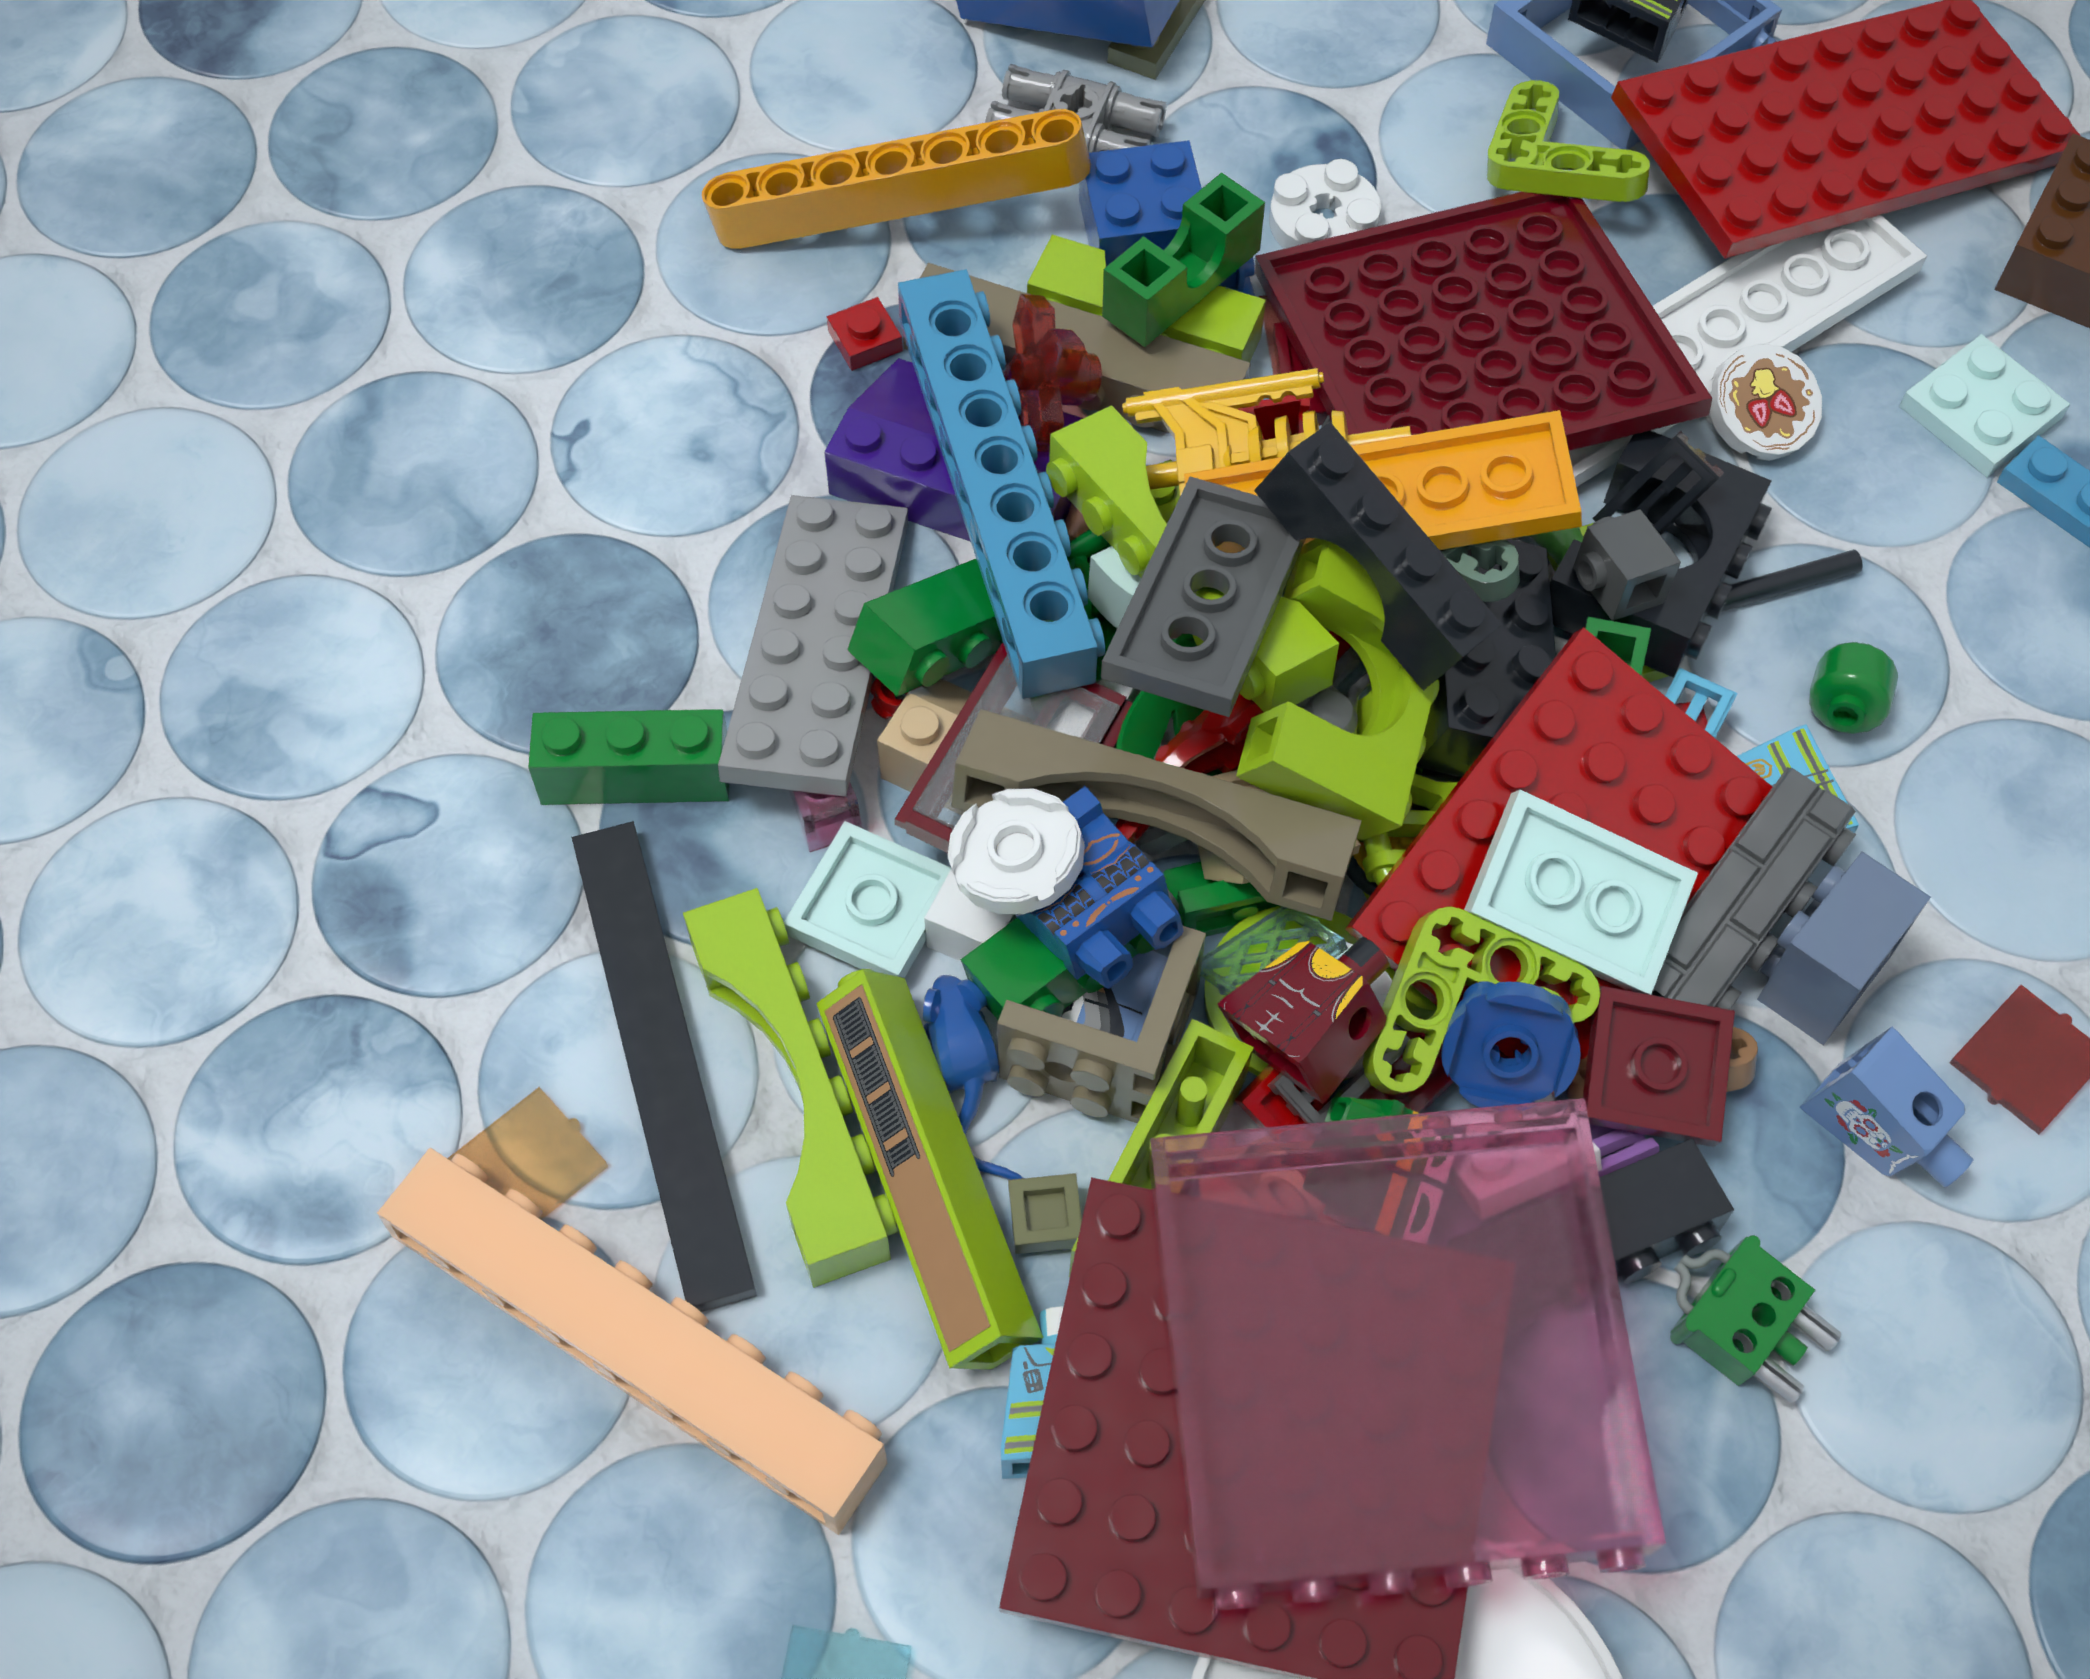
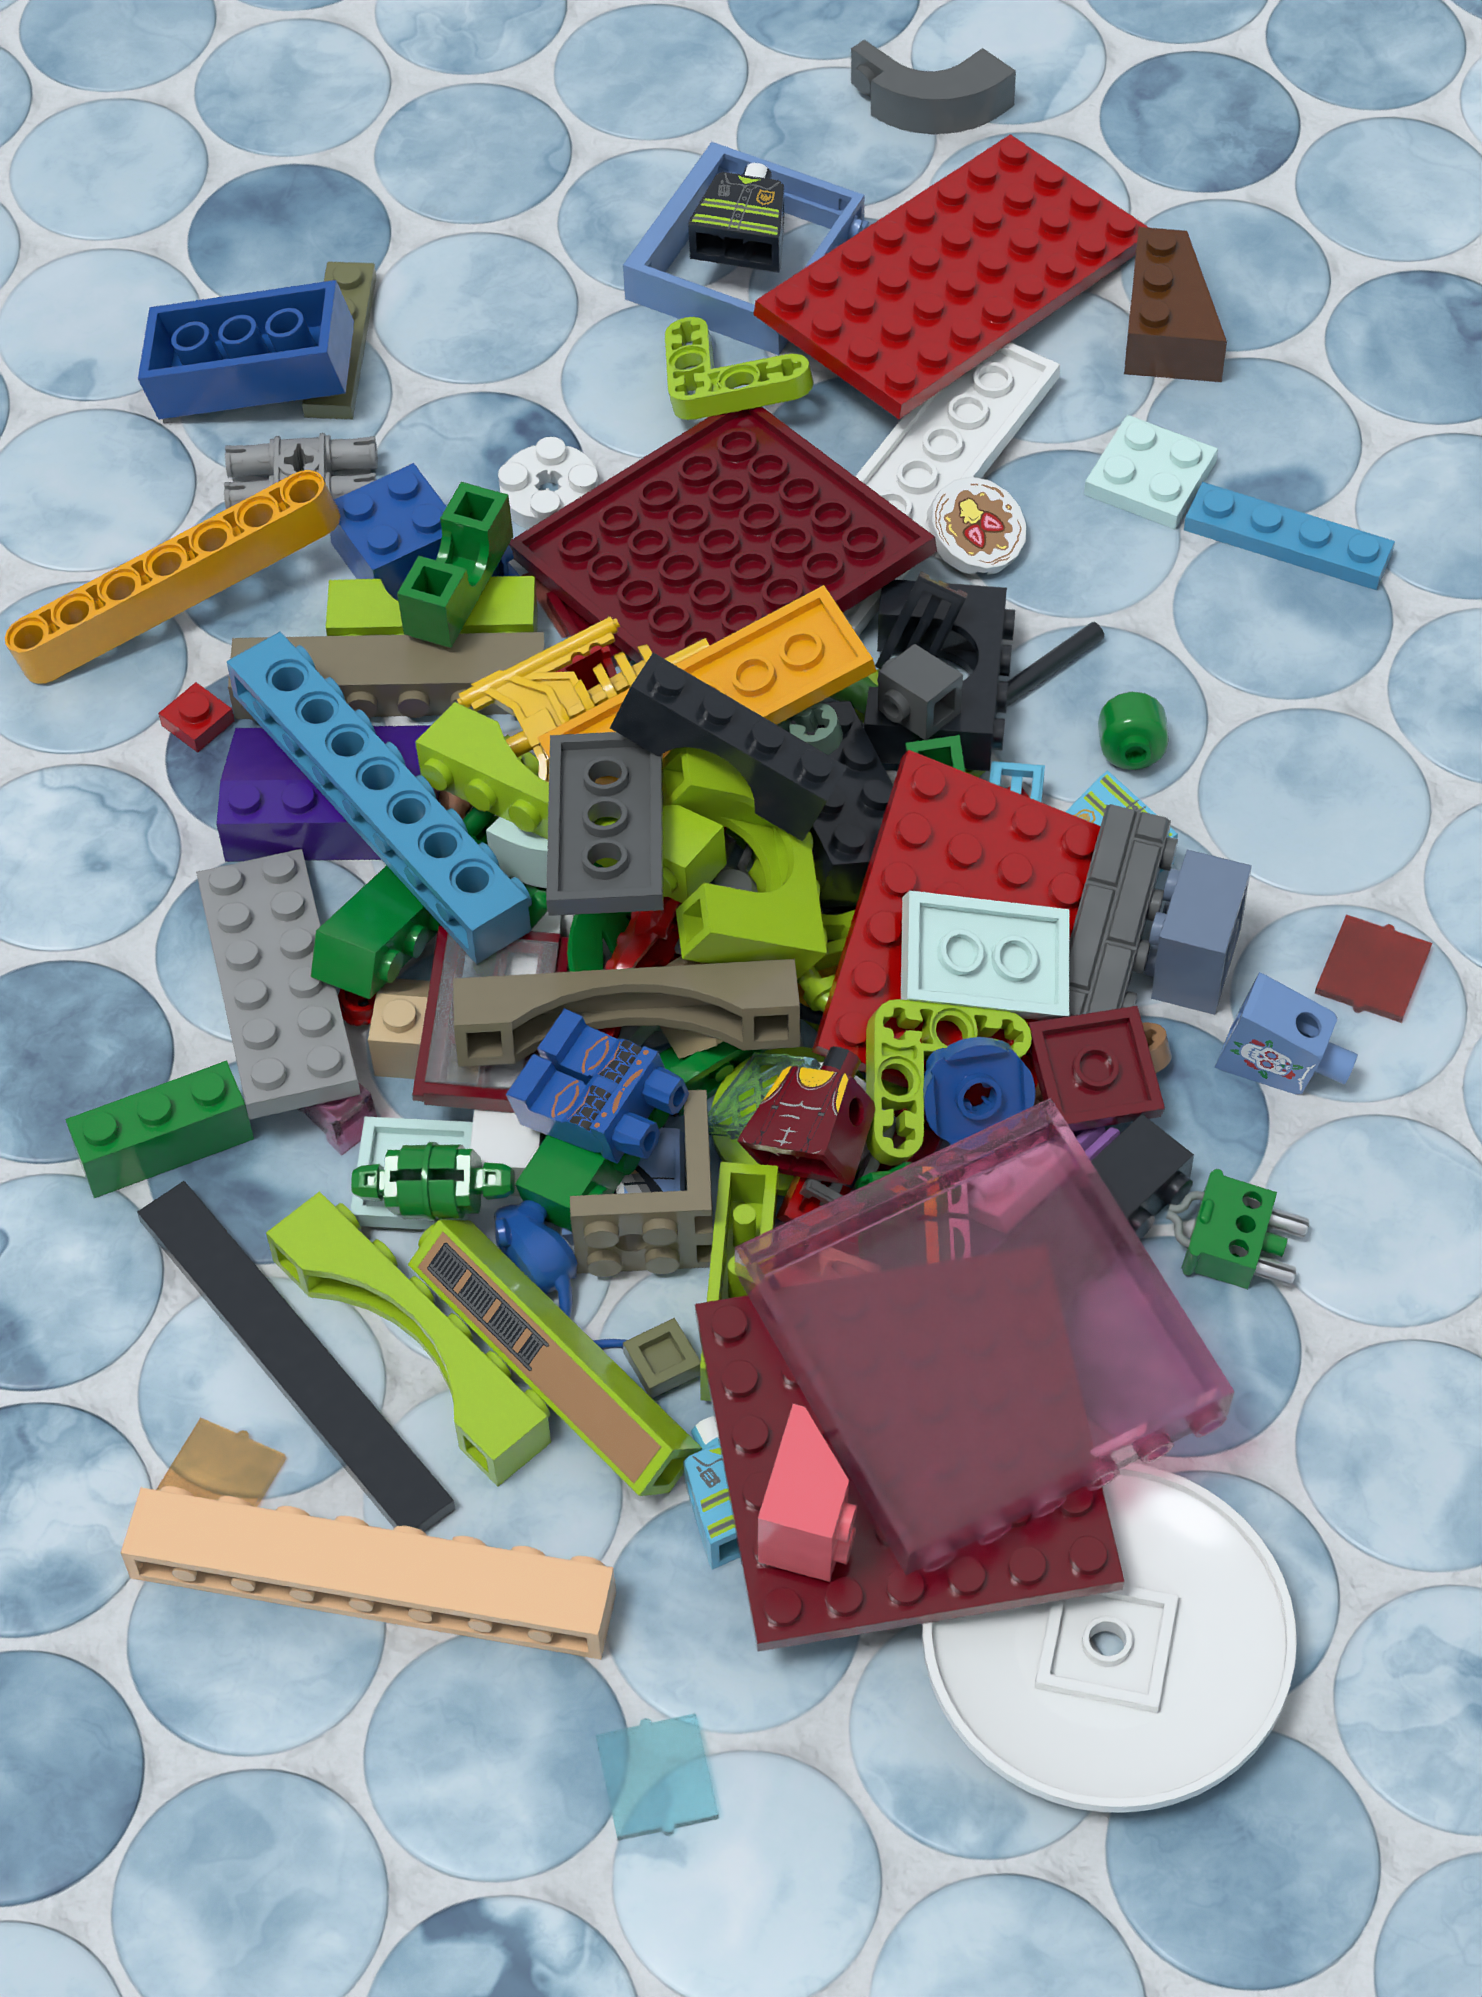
camera: 20 degrees left, 5 degrees down
(871, 937) = (433, 1181): none -> green piece
(1016, 851) = (532, 1077): white tile -> none
(1048, 368) = (381, 687): clear red plant -> none
(1106, 1478) = (806, 1508): none -> coral slope

